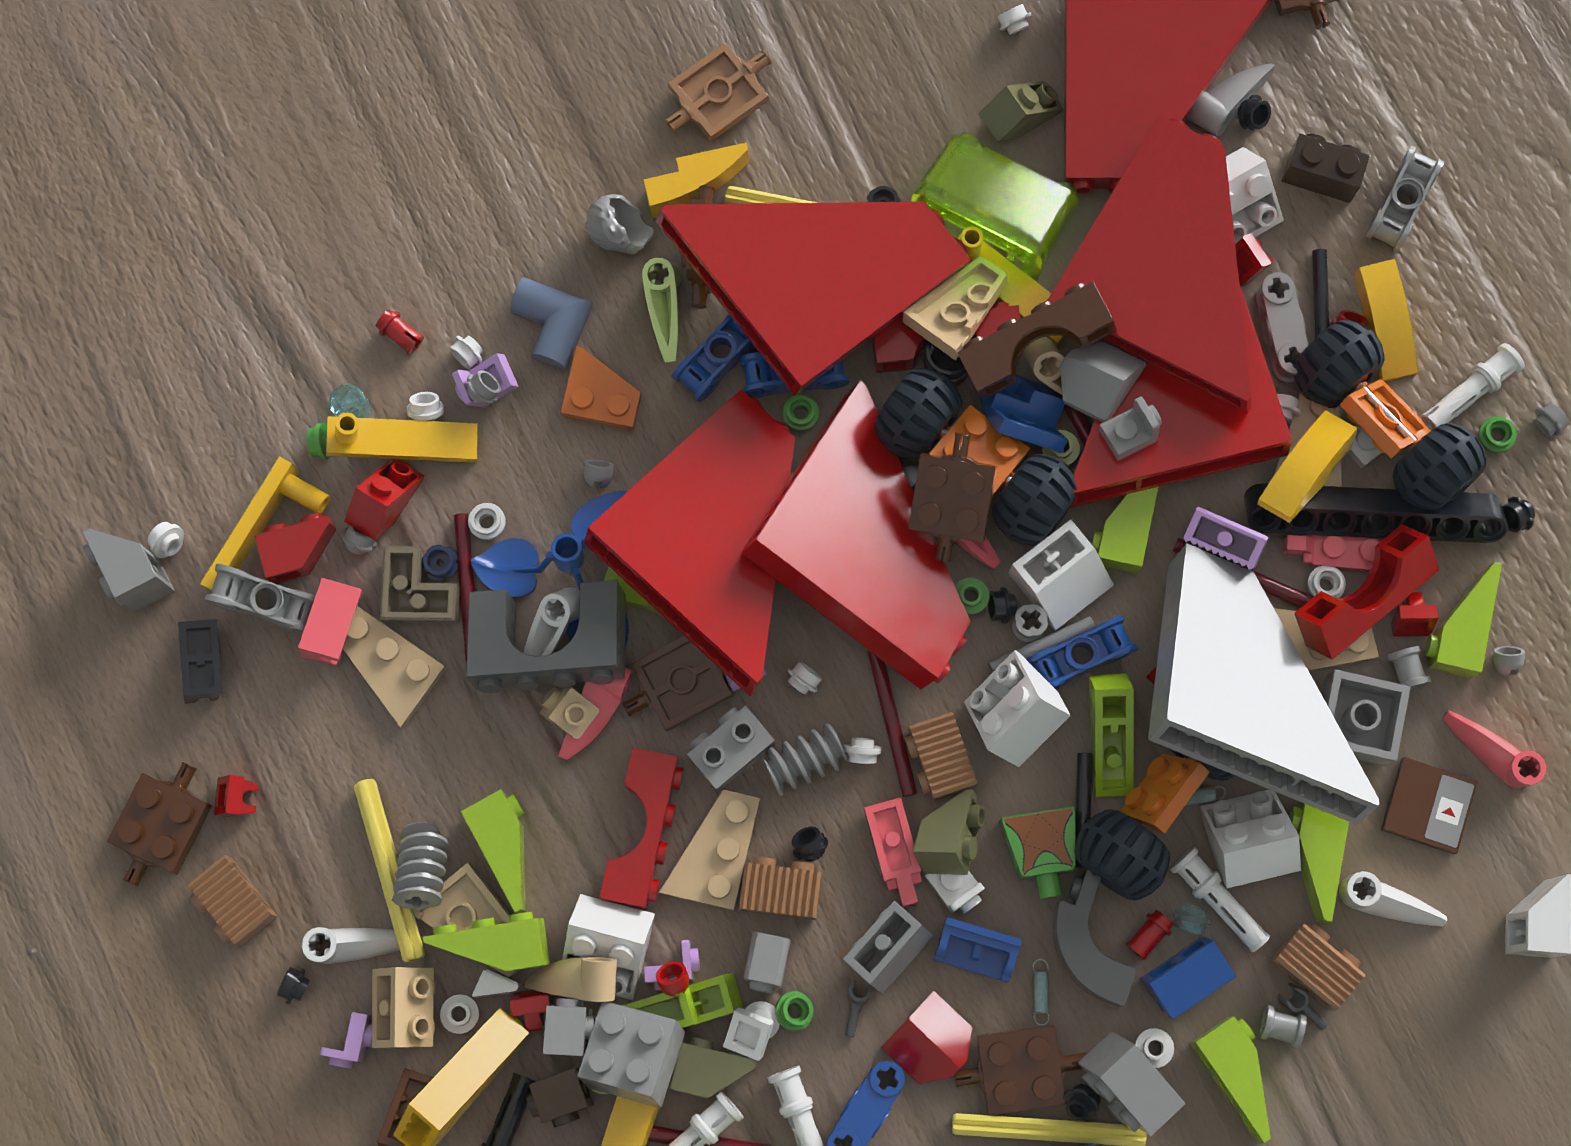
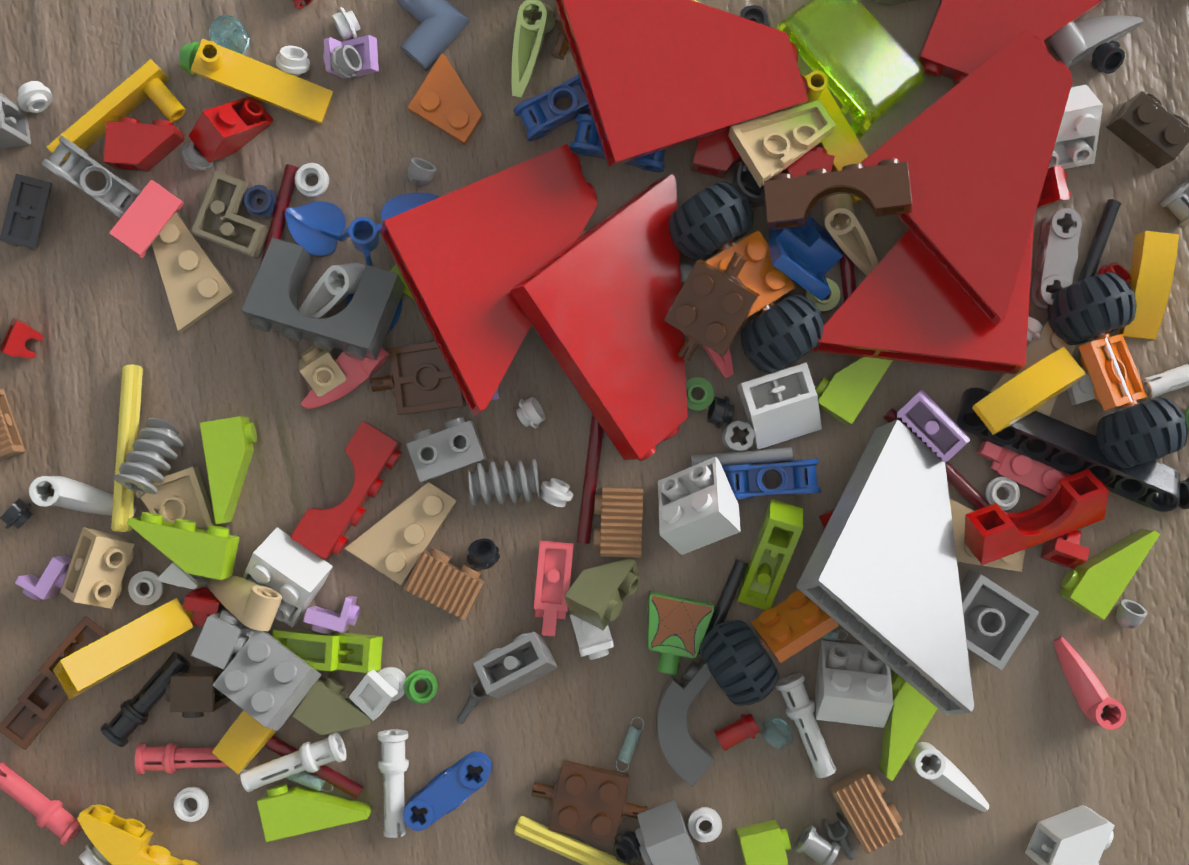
camera: 15 degrees right, 10 degrees up
(671, 970) = (317, 630): red hinge -> none
(766, 962) = (408, 642): light grey brick -> none
(800, 402) = (612, 172): bright green plate -> none
(931, 1041) = (524, 751): red slope -> none
(977, 949) = (591, 691): blue hinge -> none
(1098, 379) = (878, 248): light grey slope -> none
(1132, 429) = (890, 304): light grey bracket -> none
(1188, 977) = (755, 778): blue hinge -> none
(1409, 667) = (1043, 591): light grey bush -> none
(1429, 805) = (1013, 710): reddish brown tile -> none

